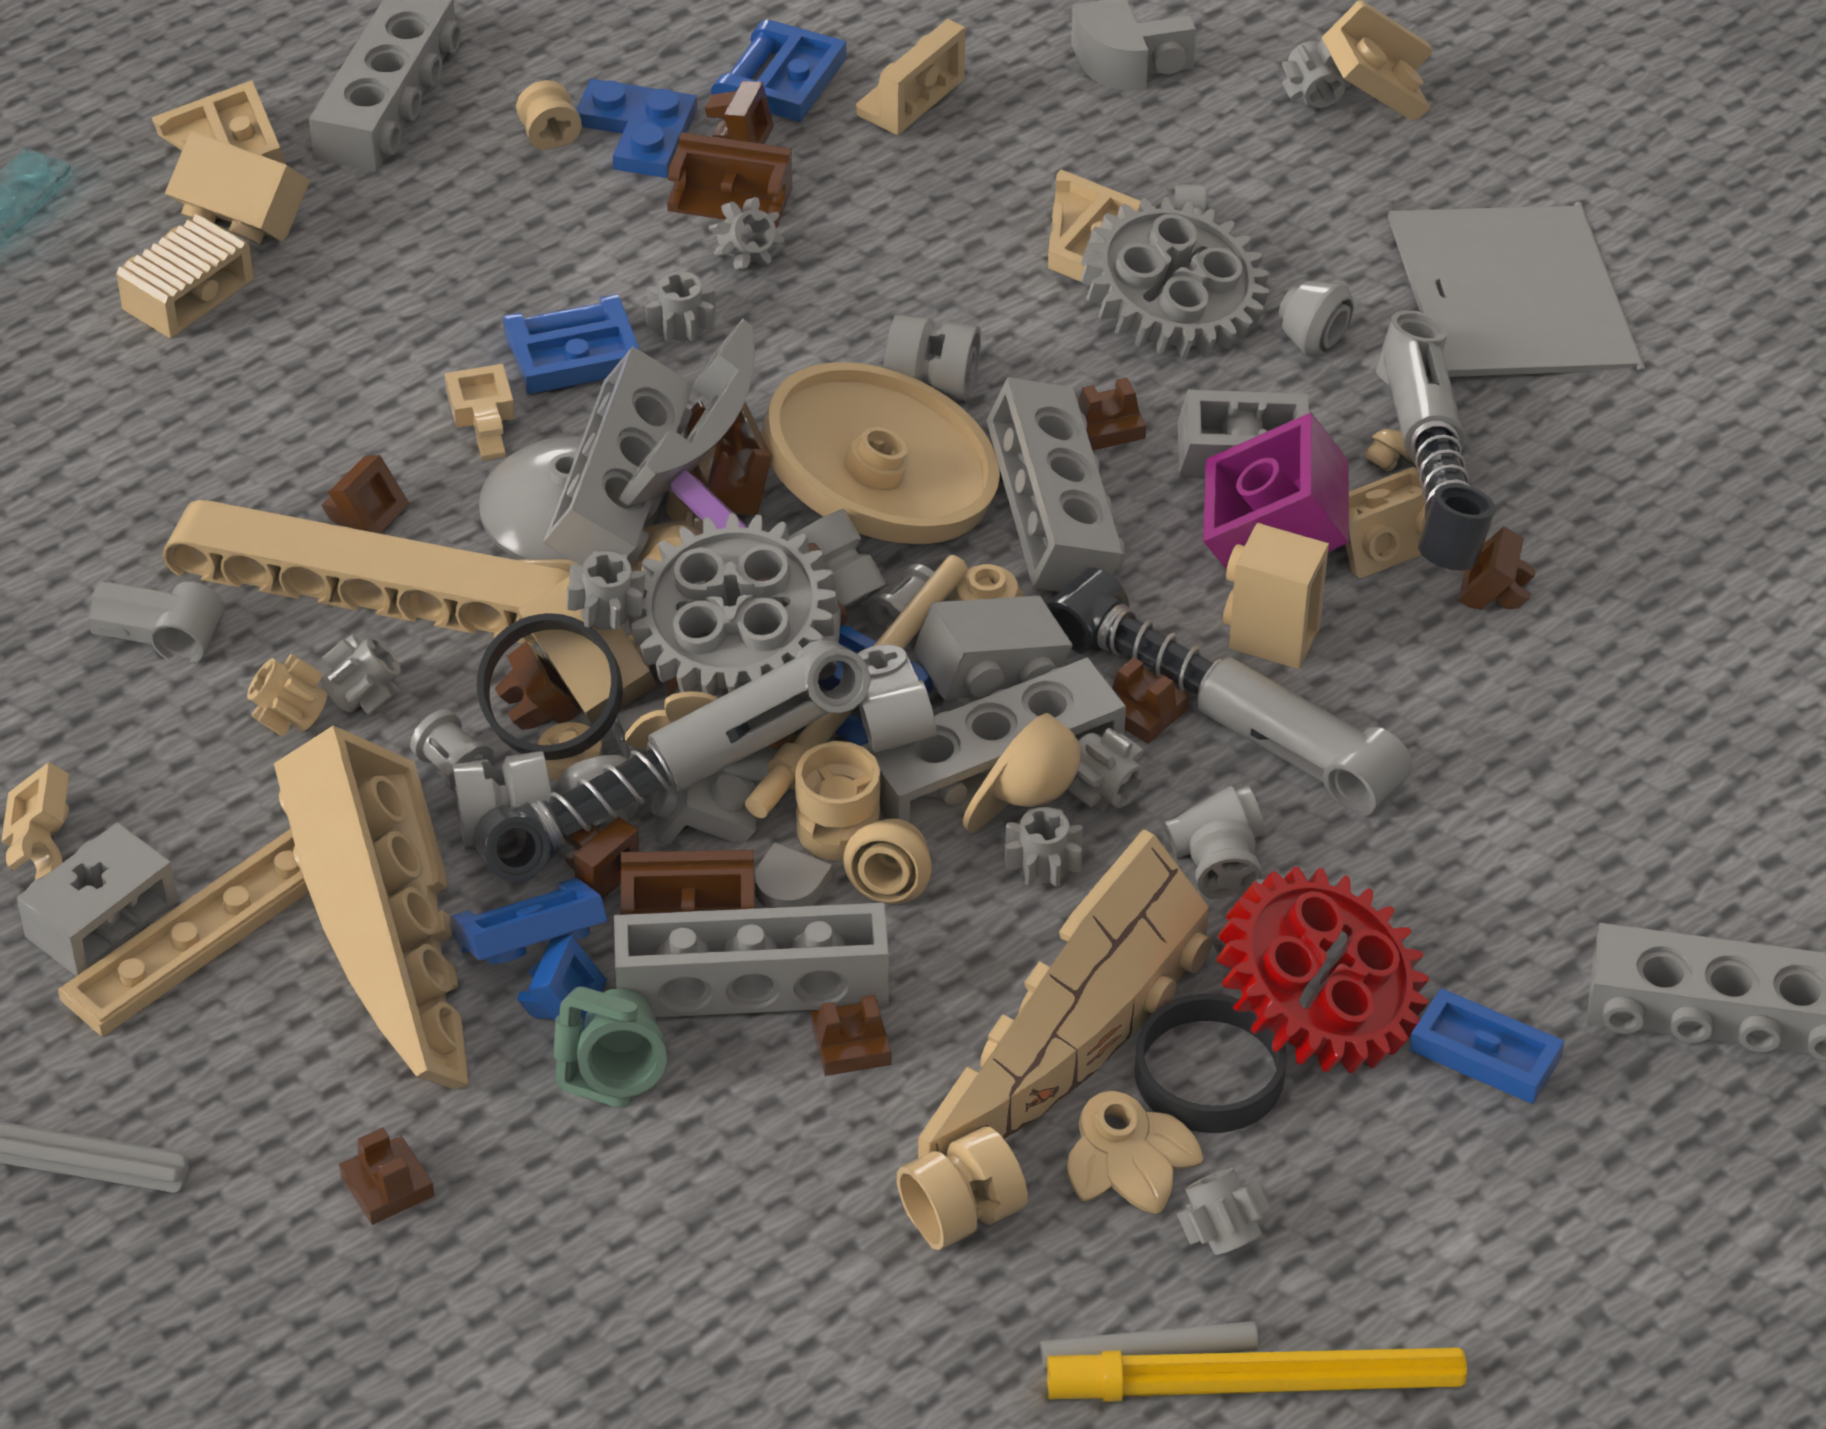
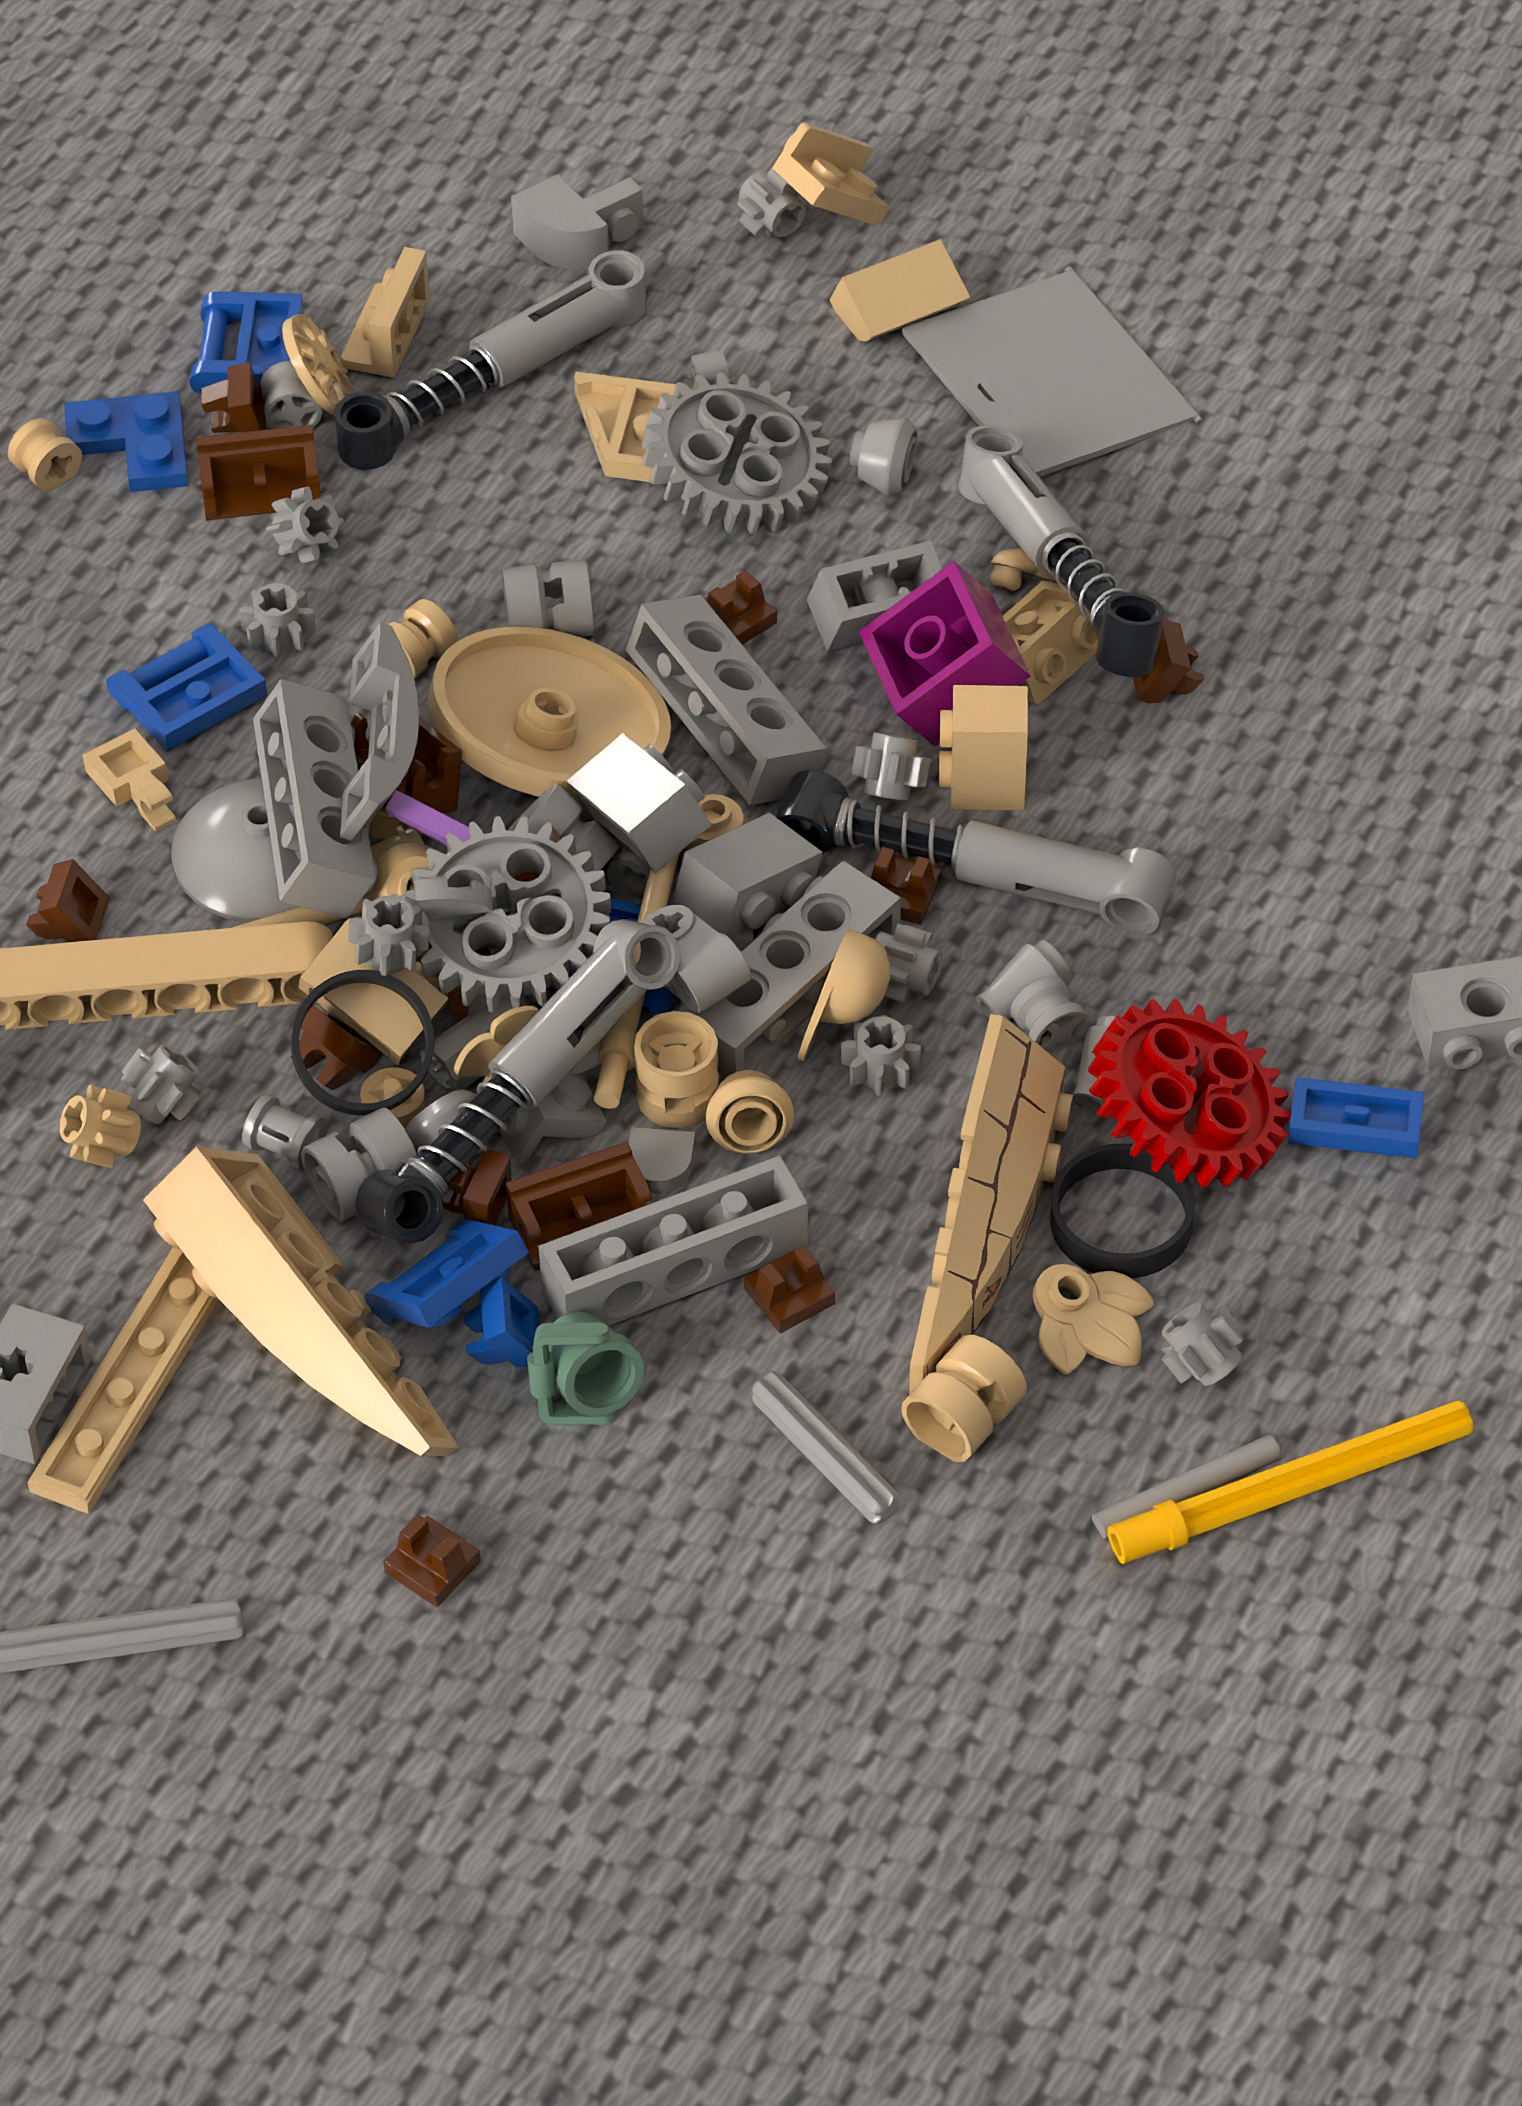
camera: 20 degrees left, 5 degrees up
(673, 576) = (444, 902): none -> light grey tile
(785, 356) = (424, 634): none -> tan wheel
(793, 122) = (287, 398): none -> light grey wheel
(811, 1195) = (825, 1447): none -> light grey axle
(824, 101) = (316, 362): none -> tan wheel
(916, 546) = (641, 801): none -> piece
(1123, 114) = (605, 298): none -> piece
(1182, 589) = (890, 766): none -> light grey gear
(1399, 177) = (899, 291): none -> tan brick

